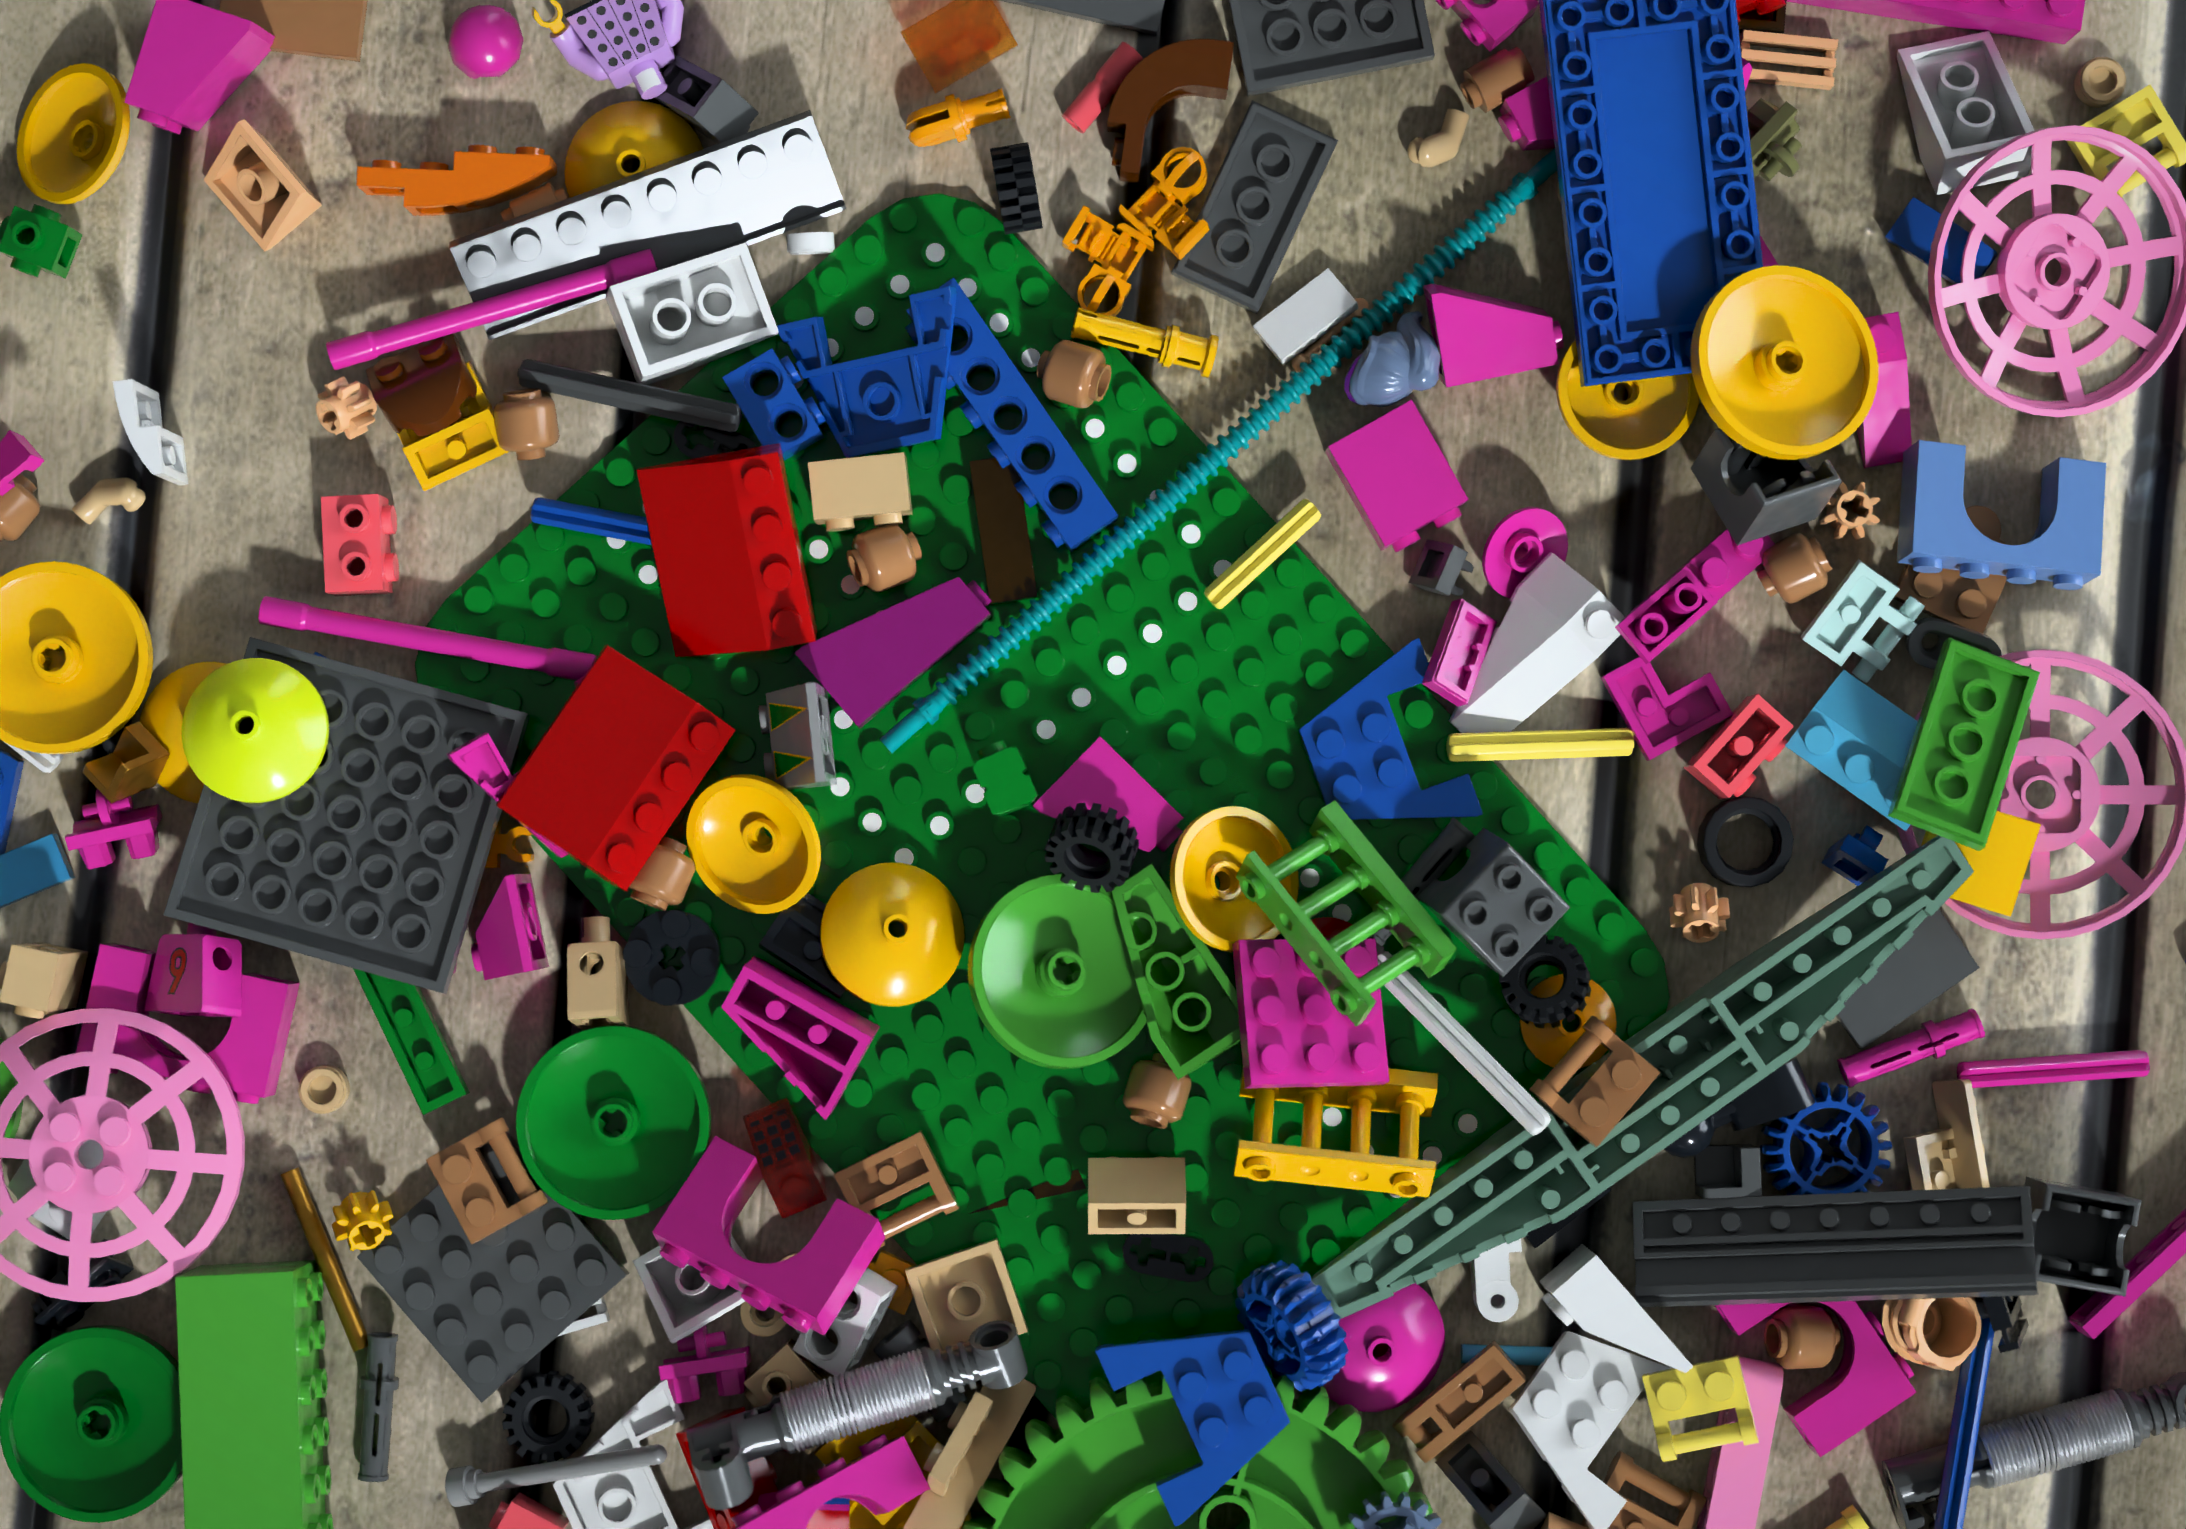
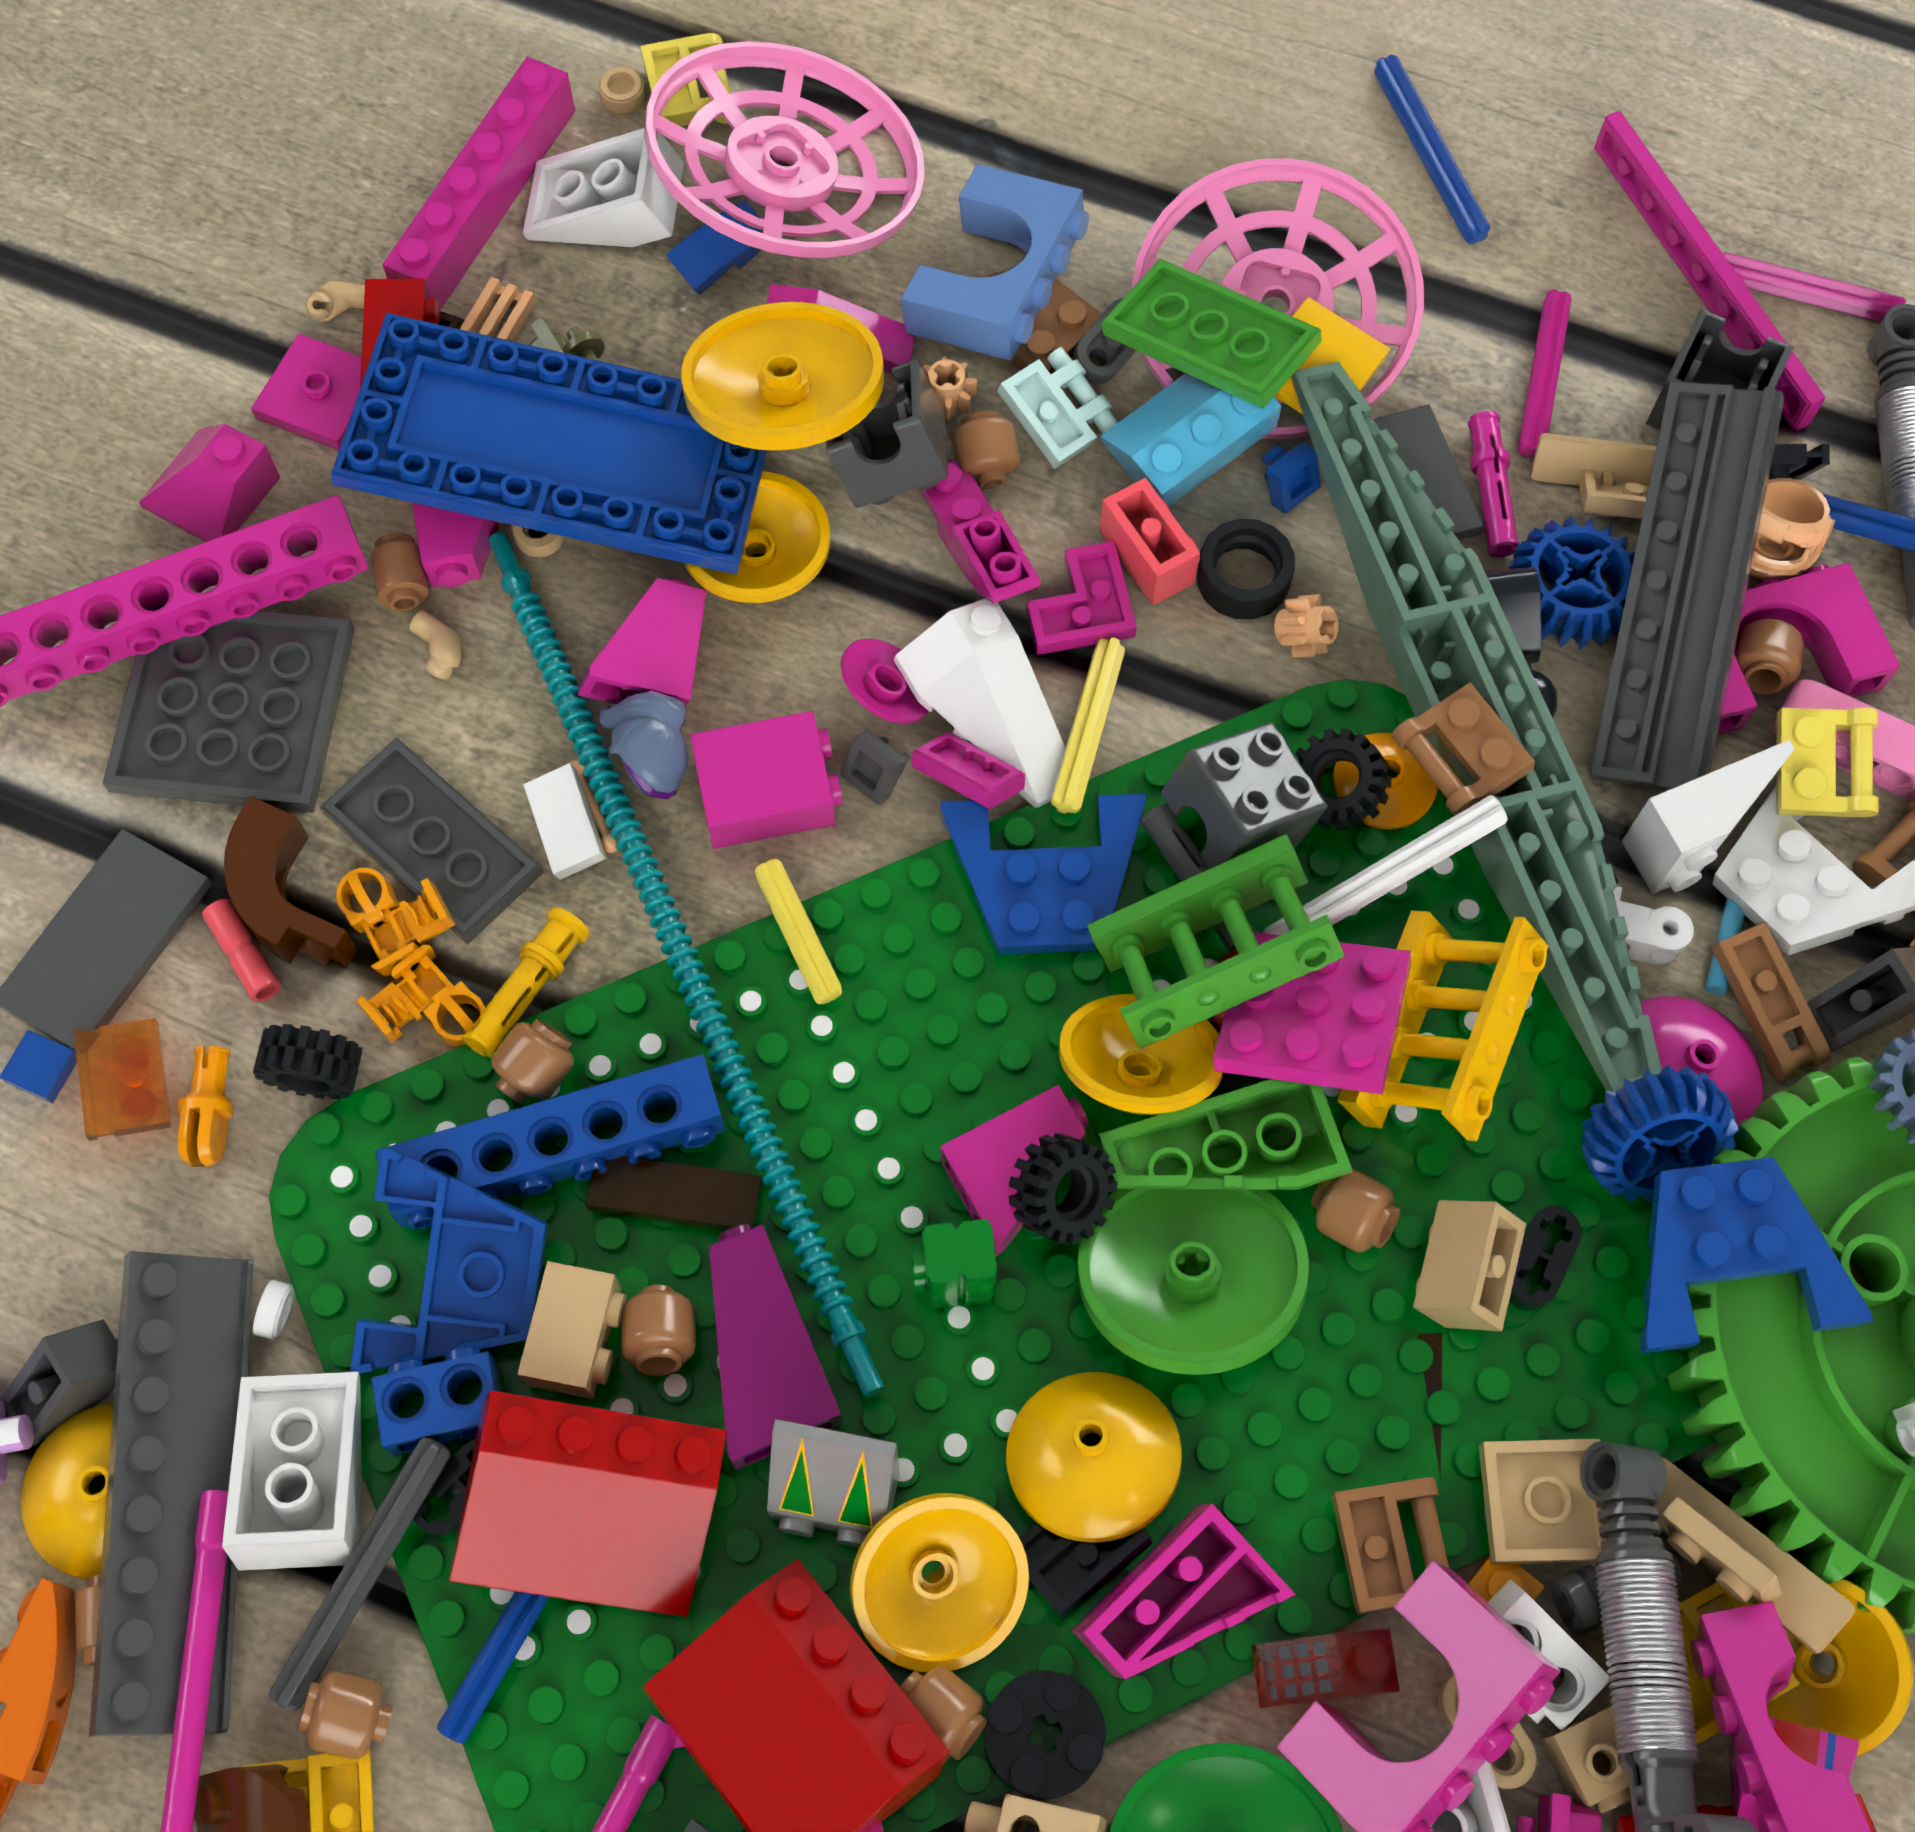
camera: 75 degrees left, 20 degrees down
(1728, 1171) = (1581, 675): dark grey panel -> none

